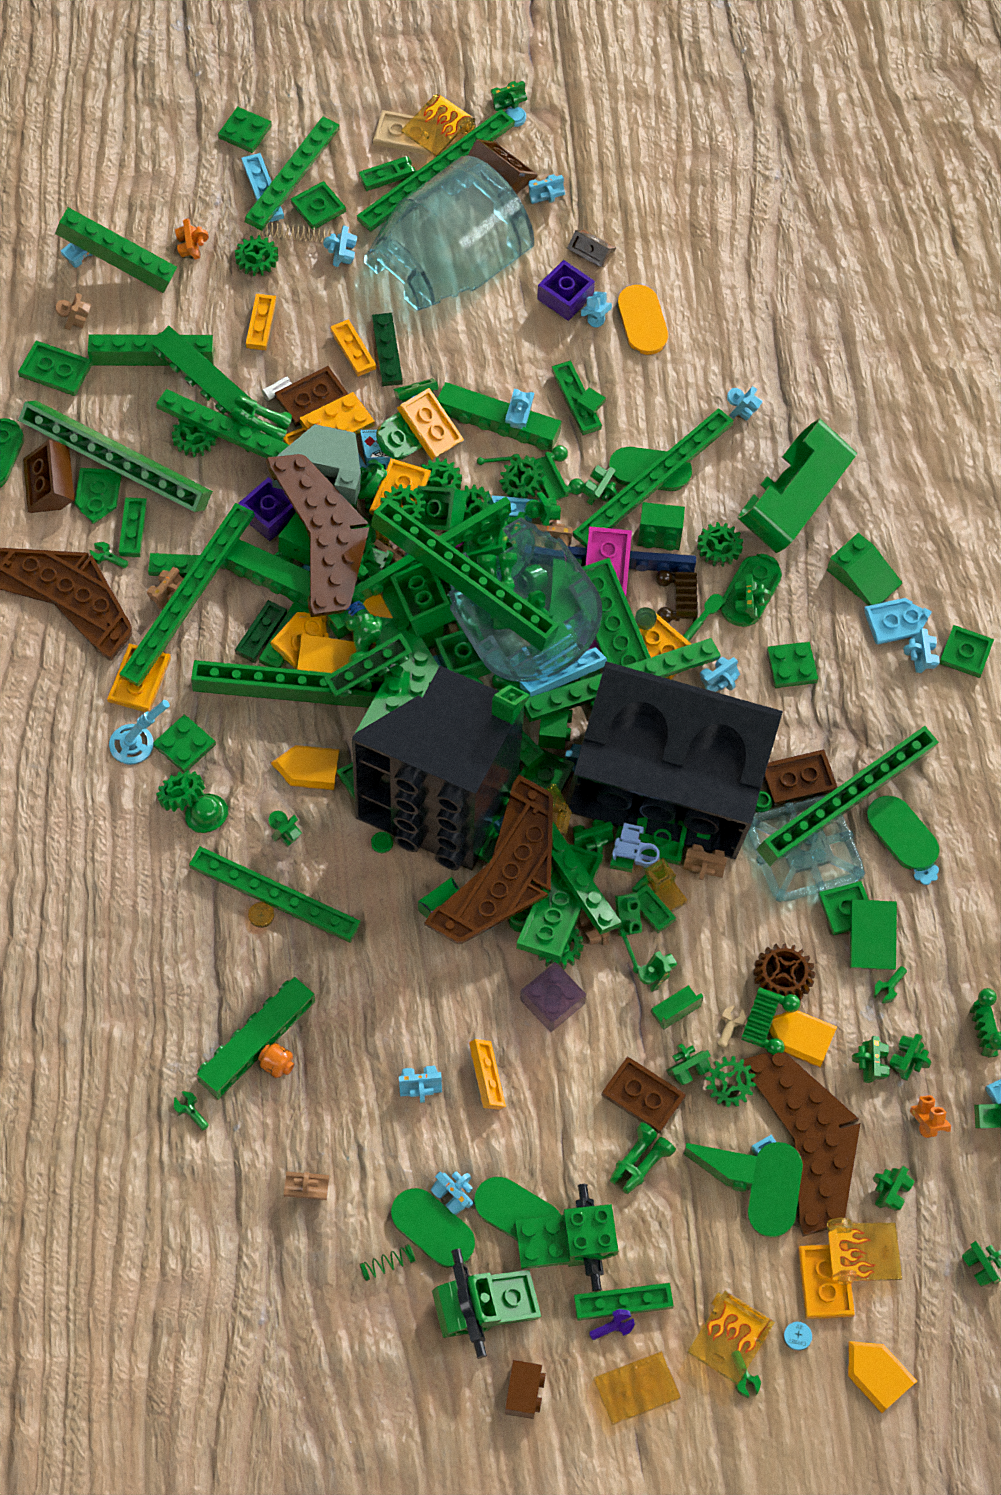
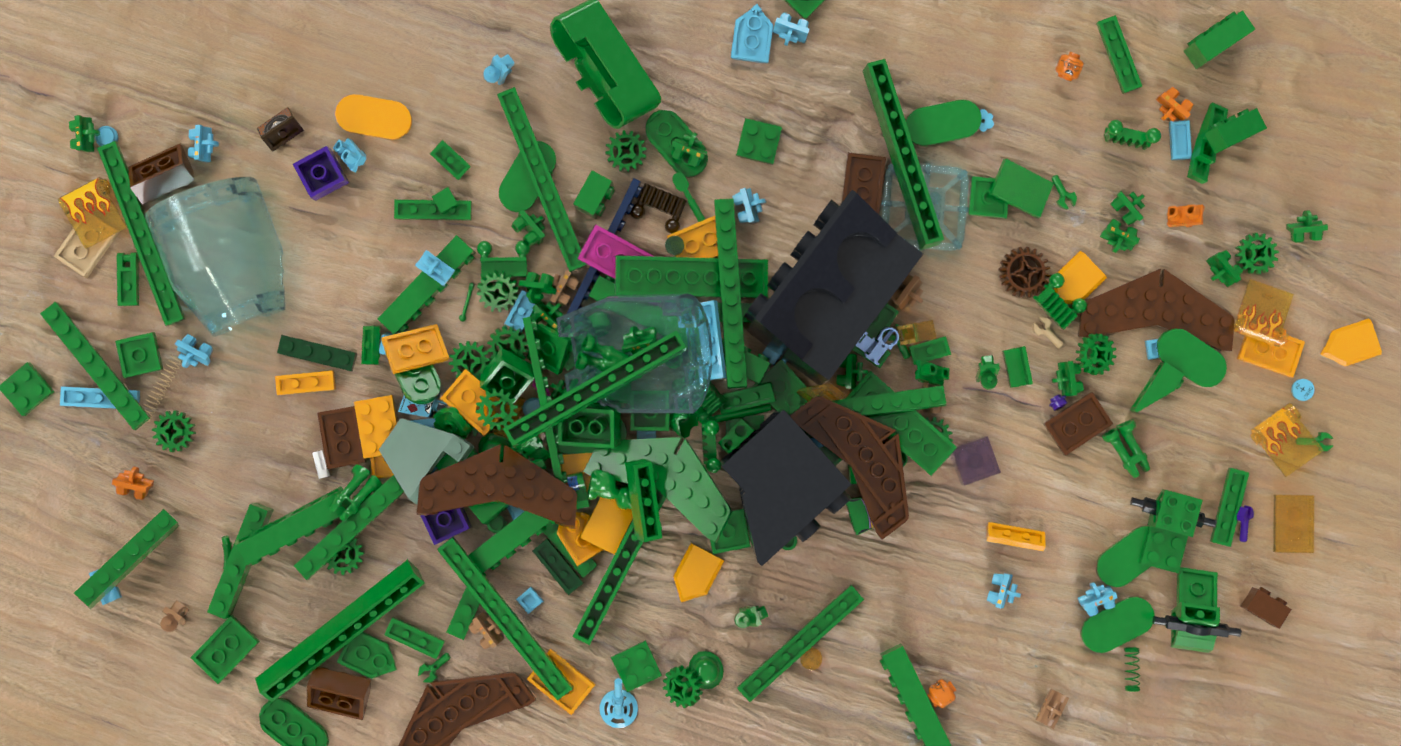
camera: 65 degrees left, 25 degrees up
(214, 619) = (529, 600): none -> medium azure tile
(261, 322) = (246, 453): light orange plate -> none
(509, 703) = (783, 422): green slope -> none
(633, 393) = (450, 159): none -> green plate
(636, 967) = (973, 383): green hinge -> none
(657, 1064) = (1058, 402): none -> dark purple plate
(864, 571) = (699, 42): green slope -> none
(937, 1219) = (1265, 252): none -> green gear

